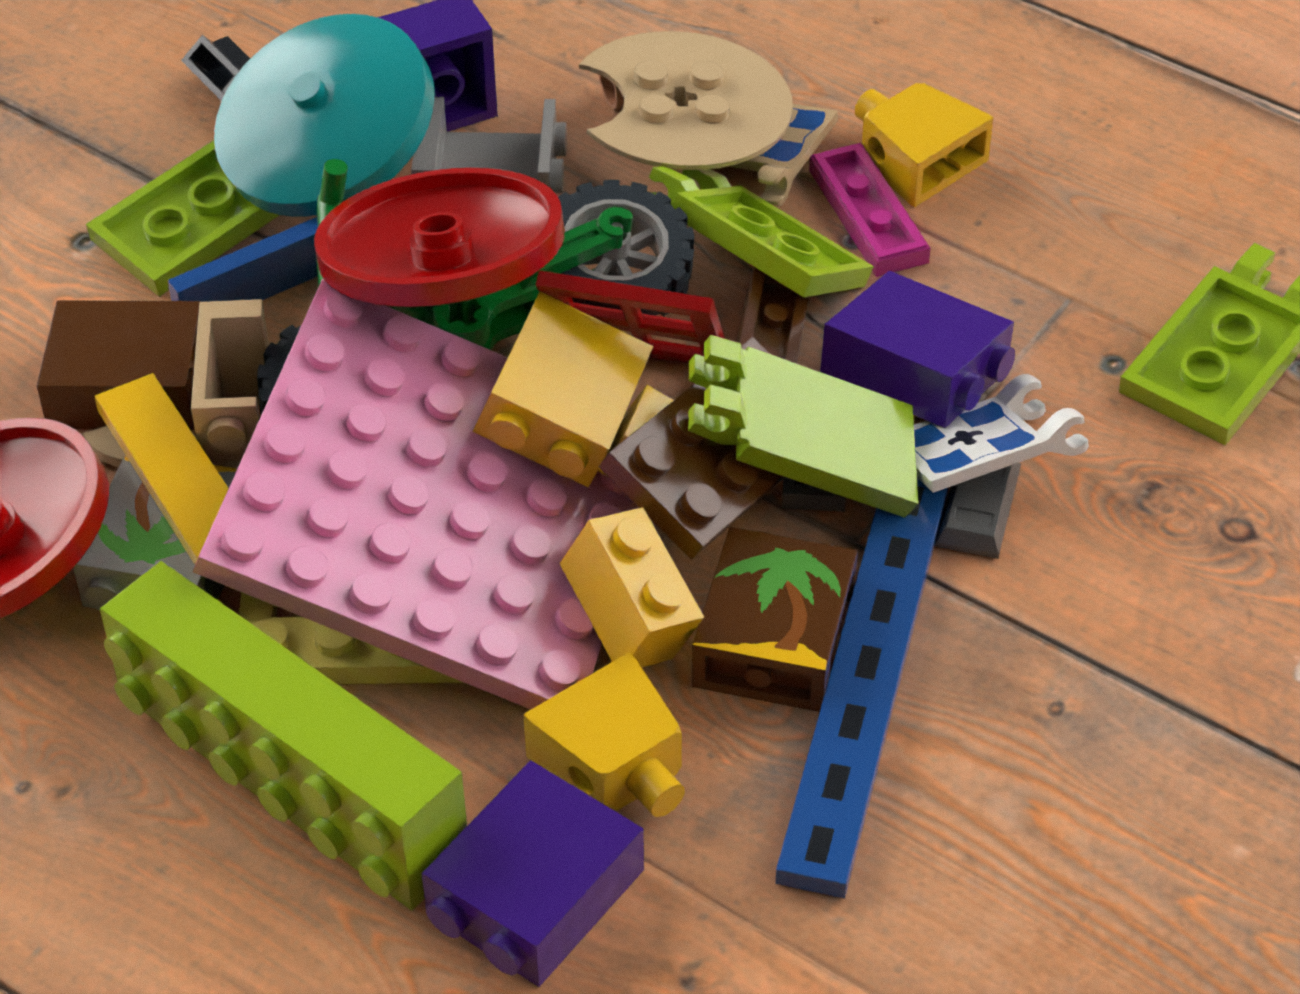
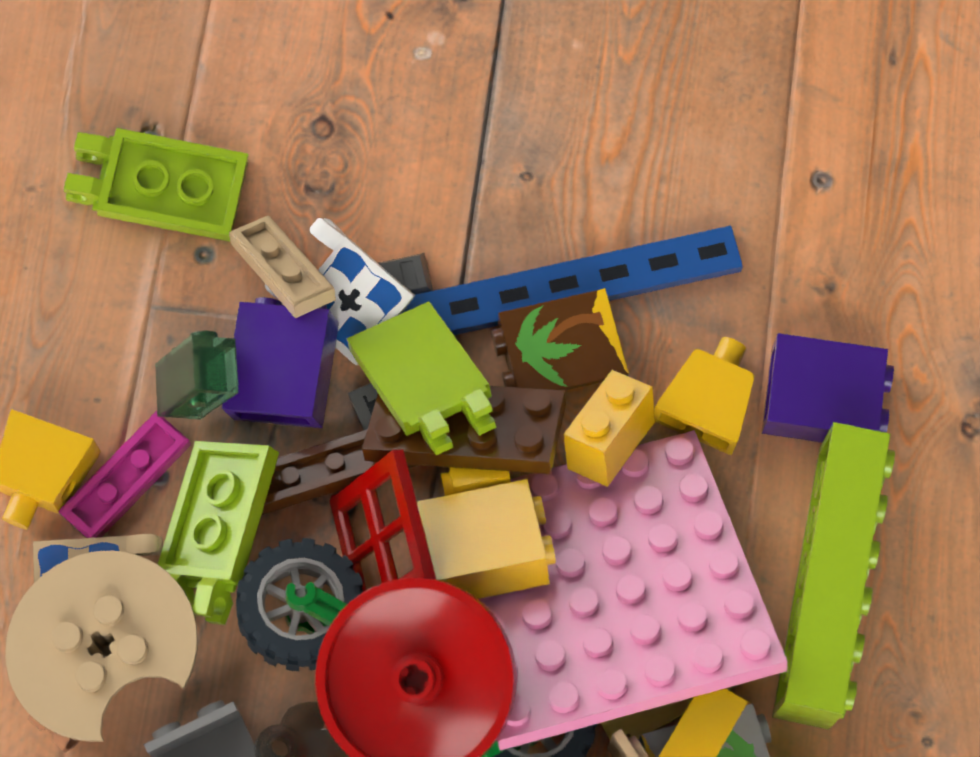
camera: 120 degrees left, 25 degrees up
(941, 251) = (196, 376): none -> clear green brick
(1042, 381) = (282, 266): none -> tan tile

